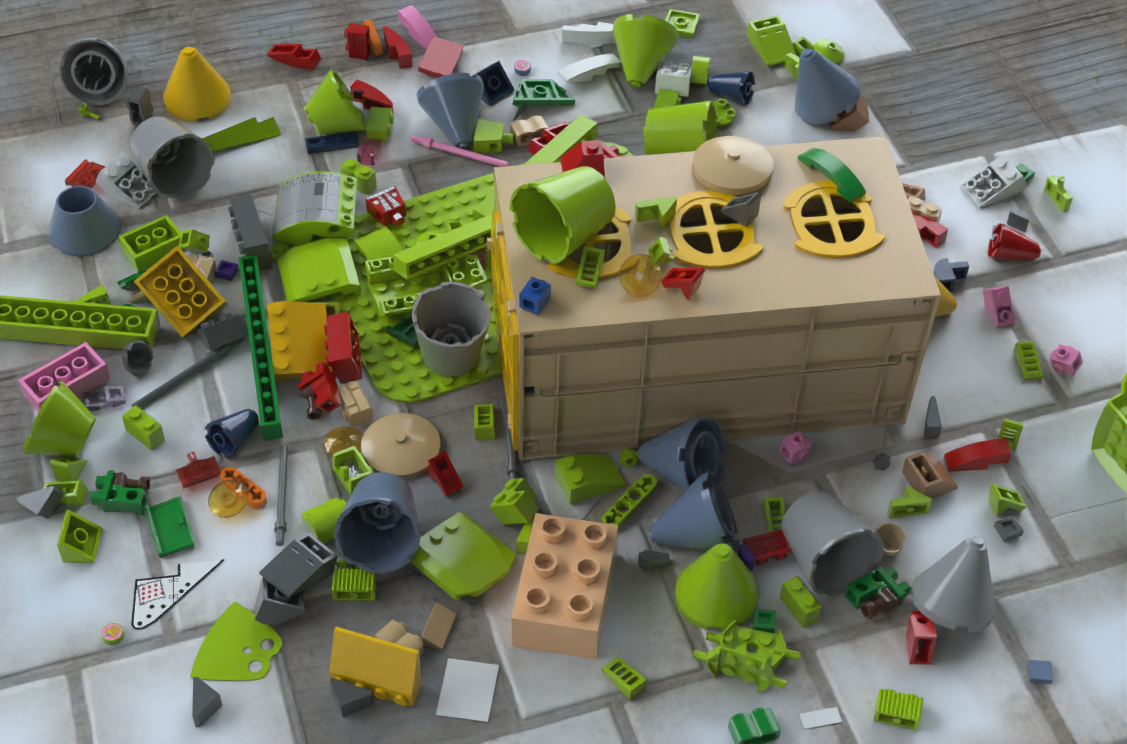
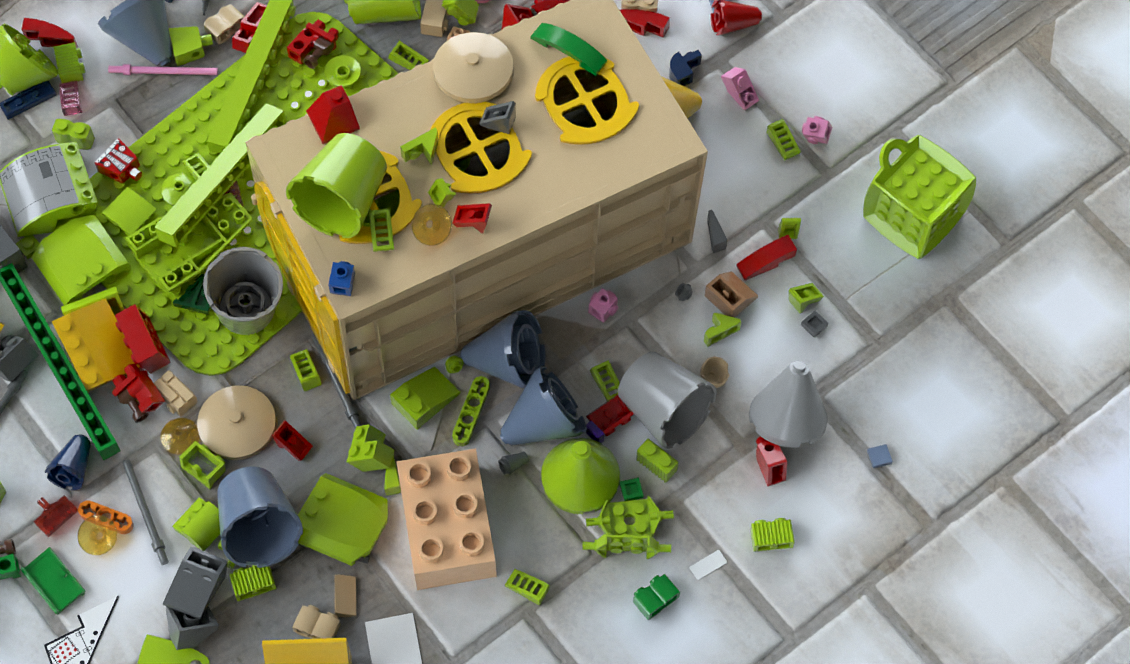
camera: 20 degrees left, 15 degrees up
(878, 584) = (722, 421): green hips -> none

